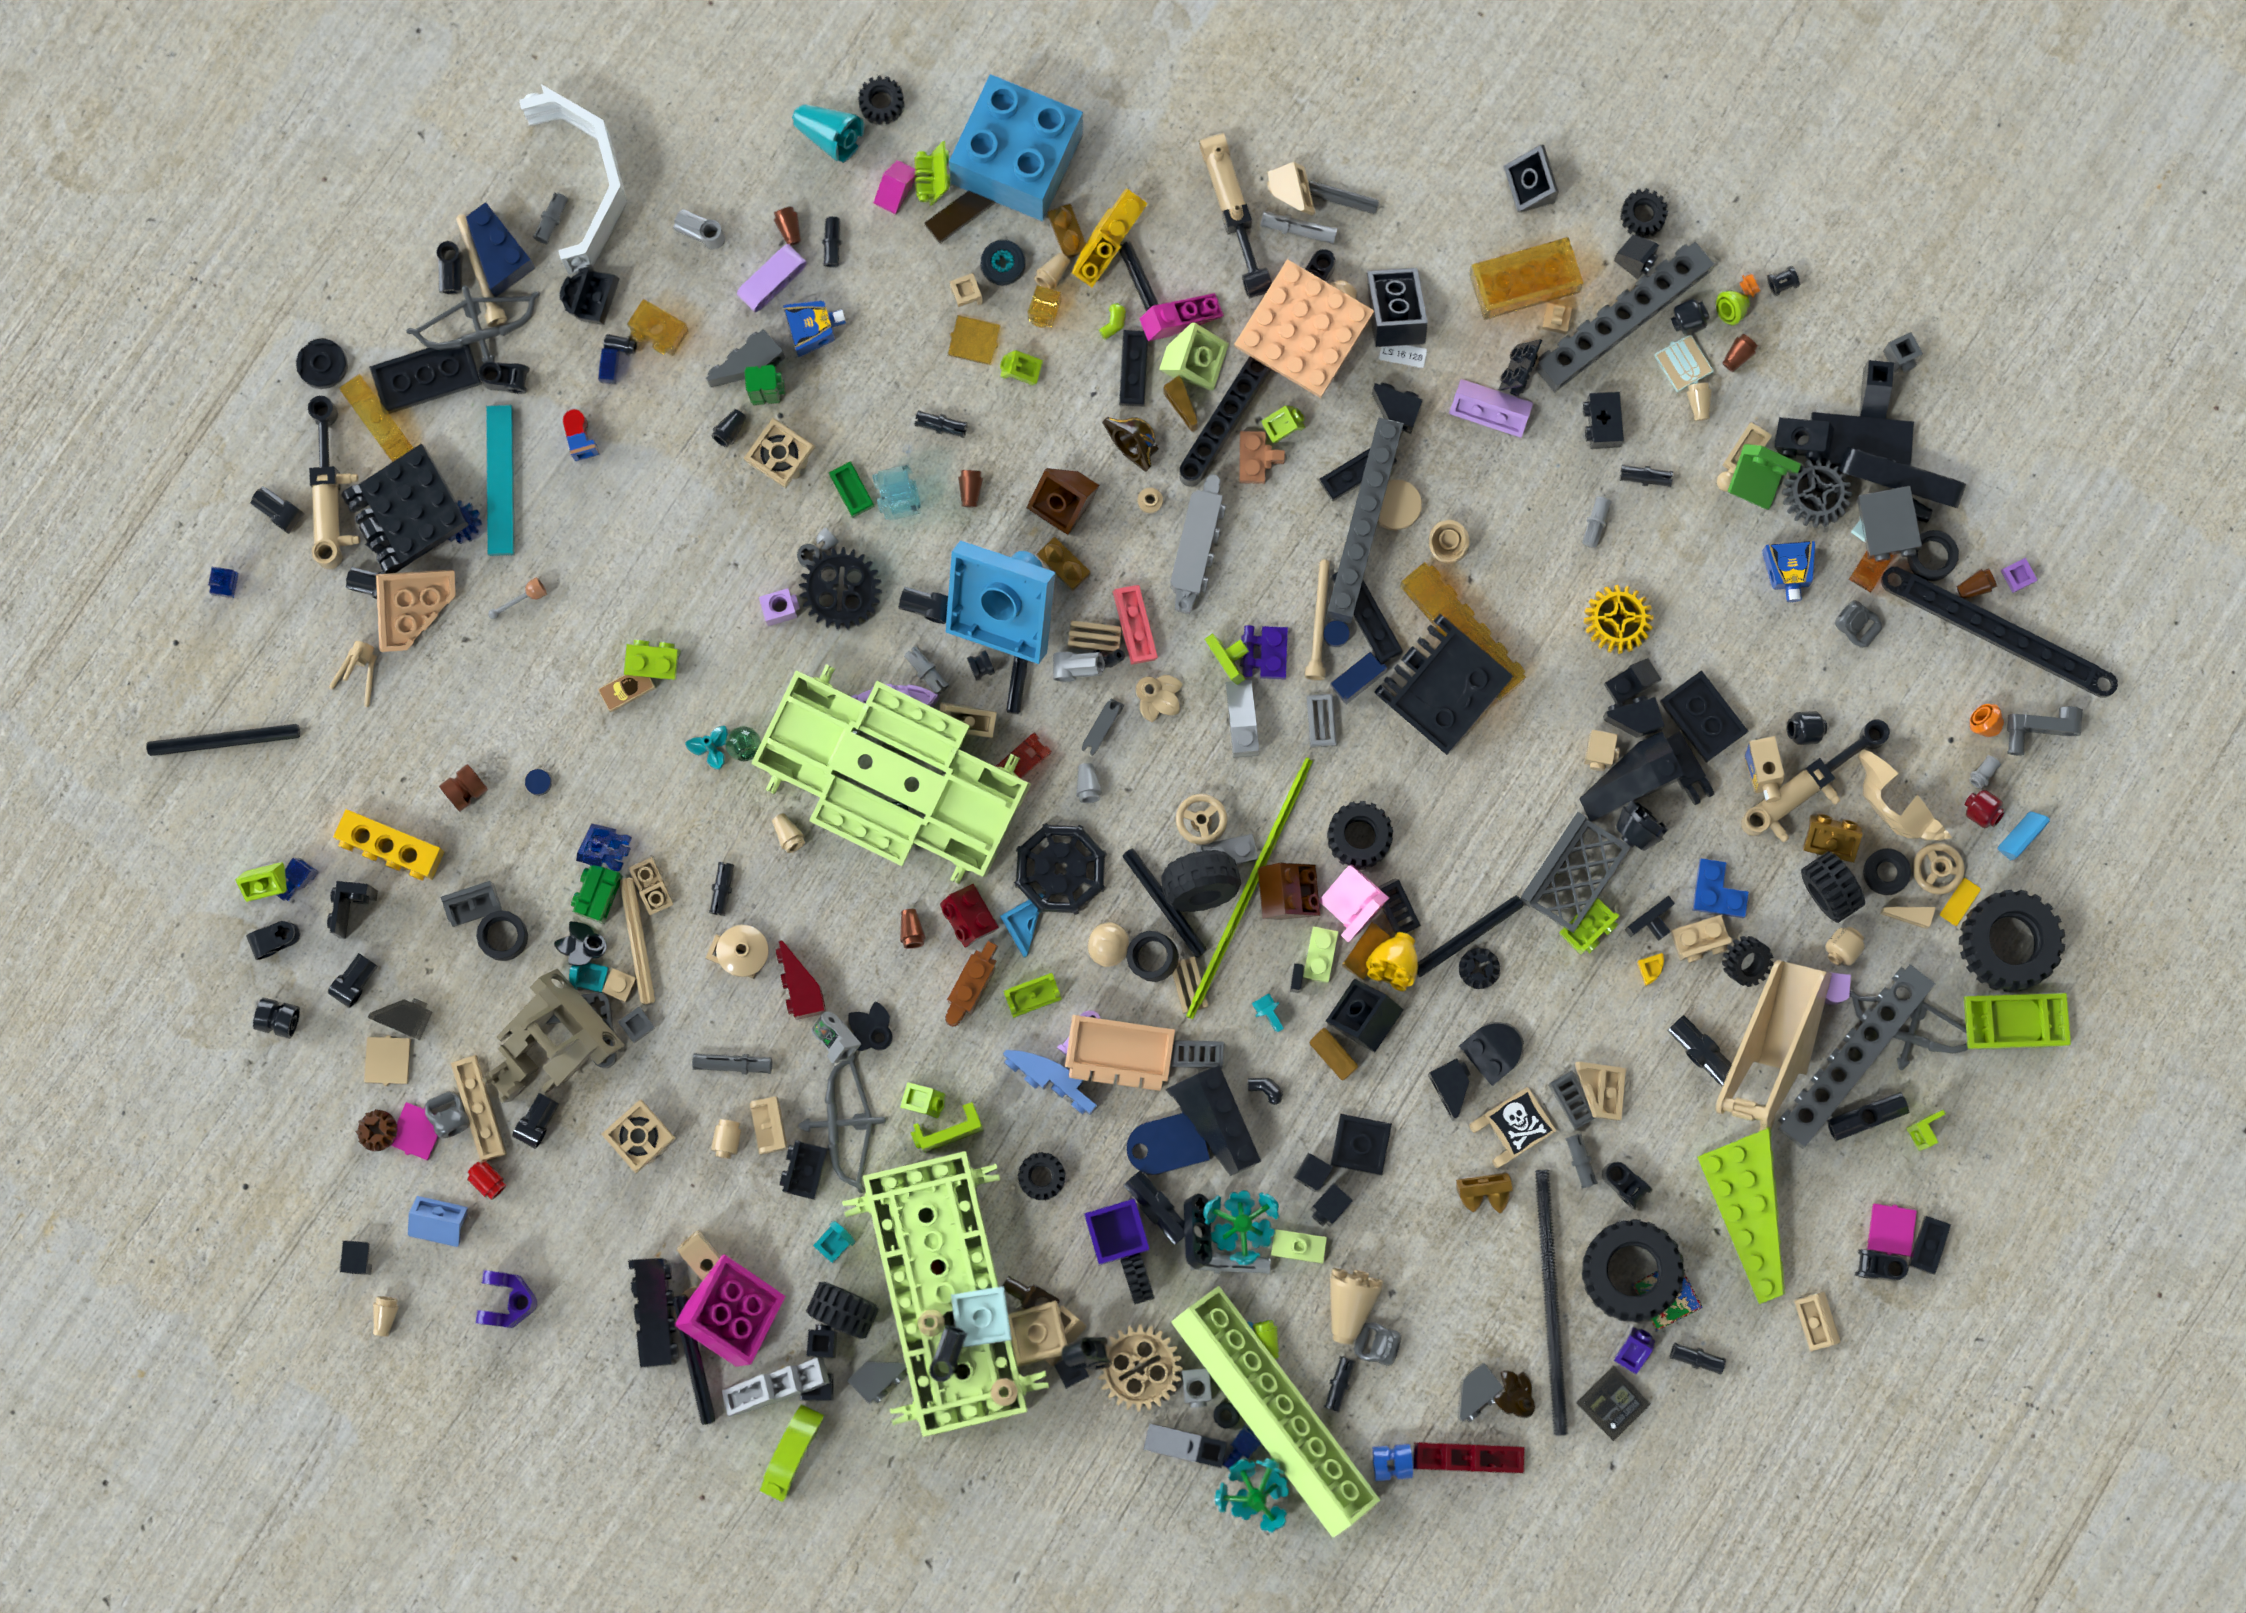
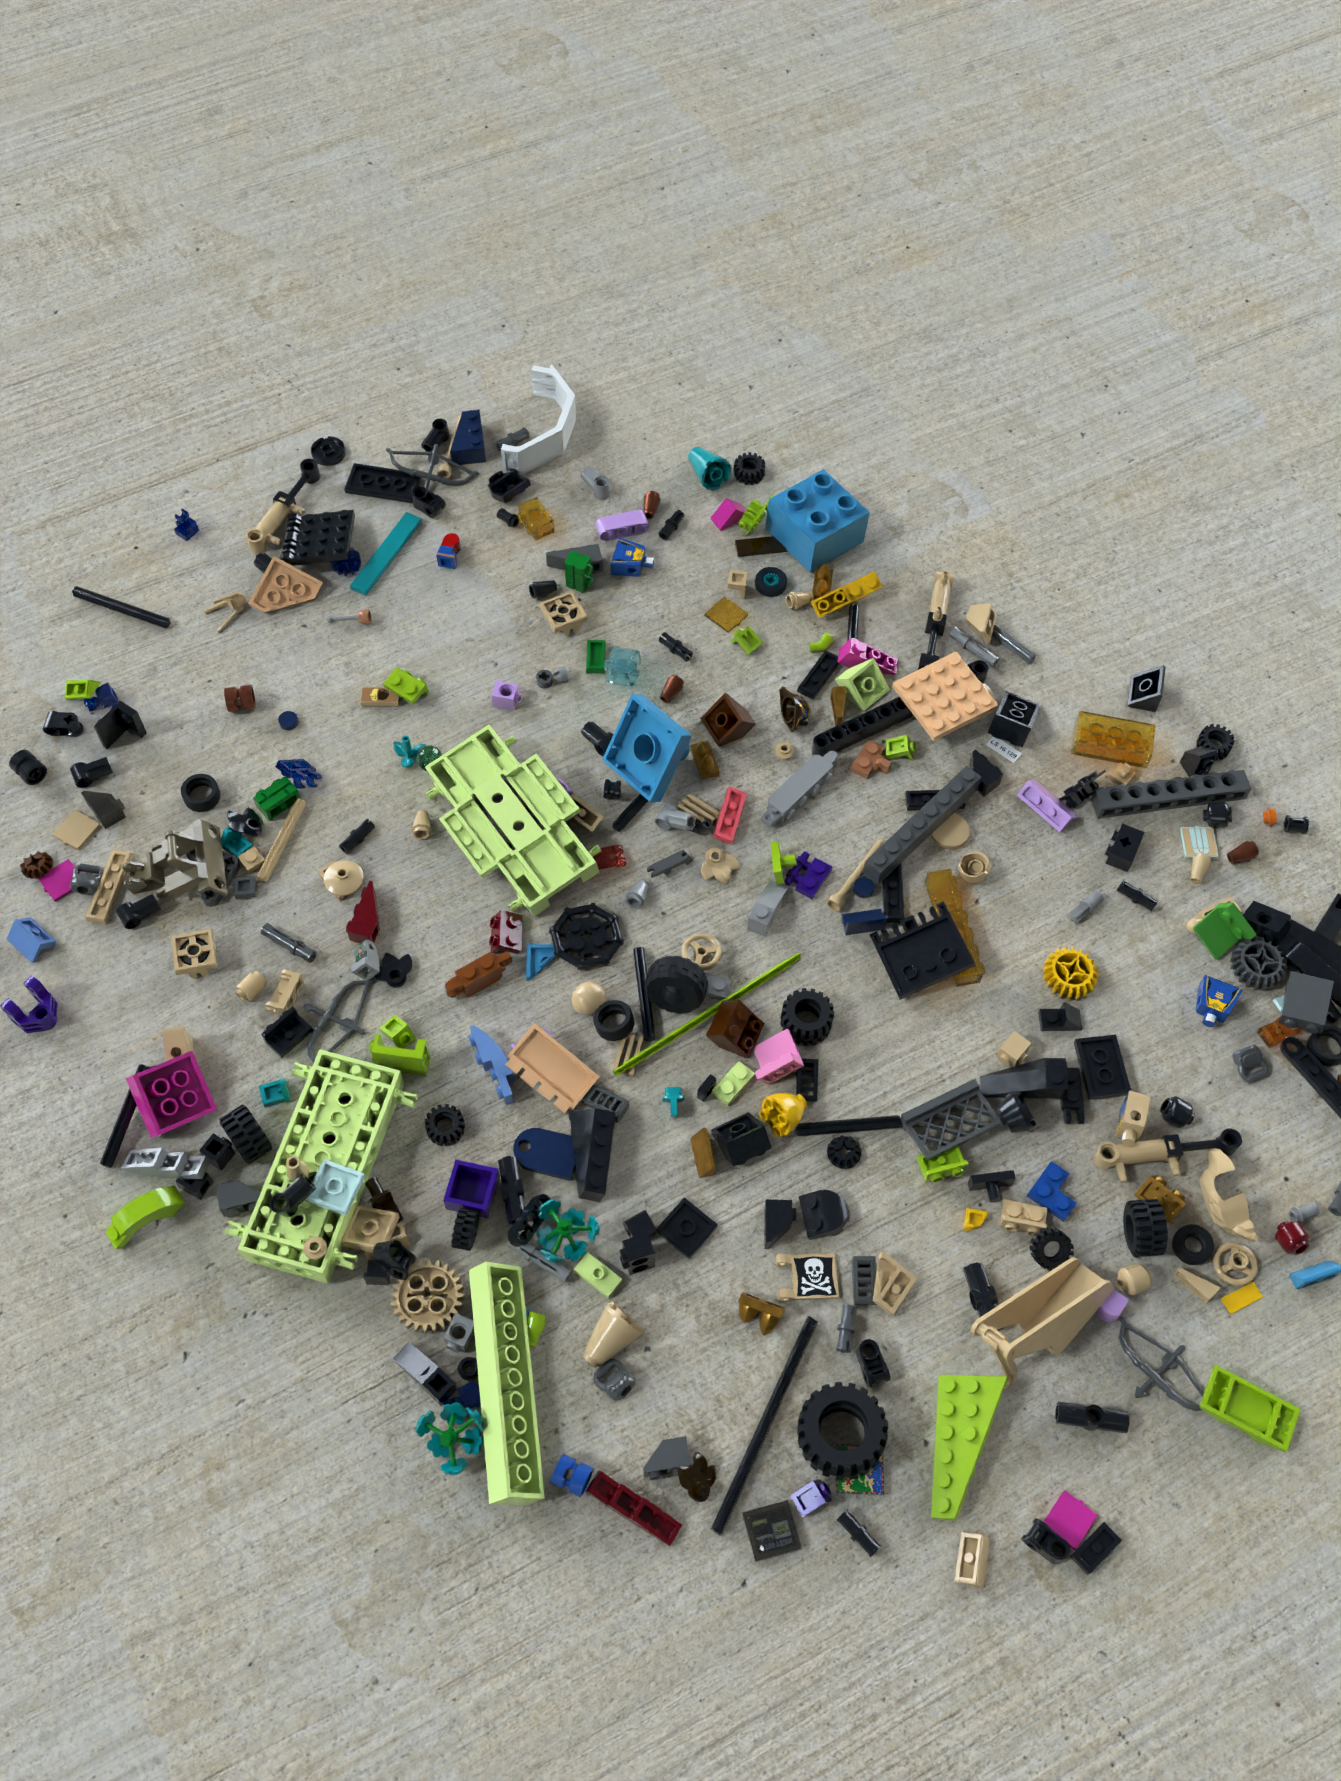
camera: 25 degrees right, 20 degrees down
(281, 512) = (246, 508): black piece -> none
(353, 825) = (171, 707): yellow brick -> none
(376, 417) = (337, 488): clear yellow slope -> none
(471, 903) = (195, 762): dark grey hinge -> none
(486, 1180) = (79, 929): red brick -> none
(608, 366) = (493, 525): clear blue piece -> none
(650, 886) = (314, 812): tan slope -> none
(654, 1312) = (131, 1050): black wedge -> none
(863, 590) = (564, 711): black gear -> none
(911, 930) = (461, 923): copper cone -> none
(926, 670) = (575, 776): light grey pin -> none
(1032, 995) = (516, 1003): lime hinge -> none
(1044, 307) = (782, 614): clear yellow brick -> none
(1268, 1086) = (642, 1150): black arm -> none
(1322, 742) = (816, 949): light grey tile -> none
(1339, 1384) = (567, 1393): black pin -> none
(1362, 950) = (755, 1097): pearl gold slope -> none
(1637, 718) = (1050, 1041): black slope -> none
(1732, 307) = (1251, 822): lime brick -> none
(1918, 987) = (1174, 1327): dark grey brick -> none
(1922, 1133) = (1131, 1450): lime panel -> none
(1987, 720) = (1322, 1176): orange cone -> none
(2037, 918) = (1291, 1324): black tyre -> none

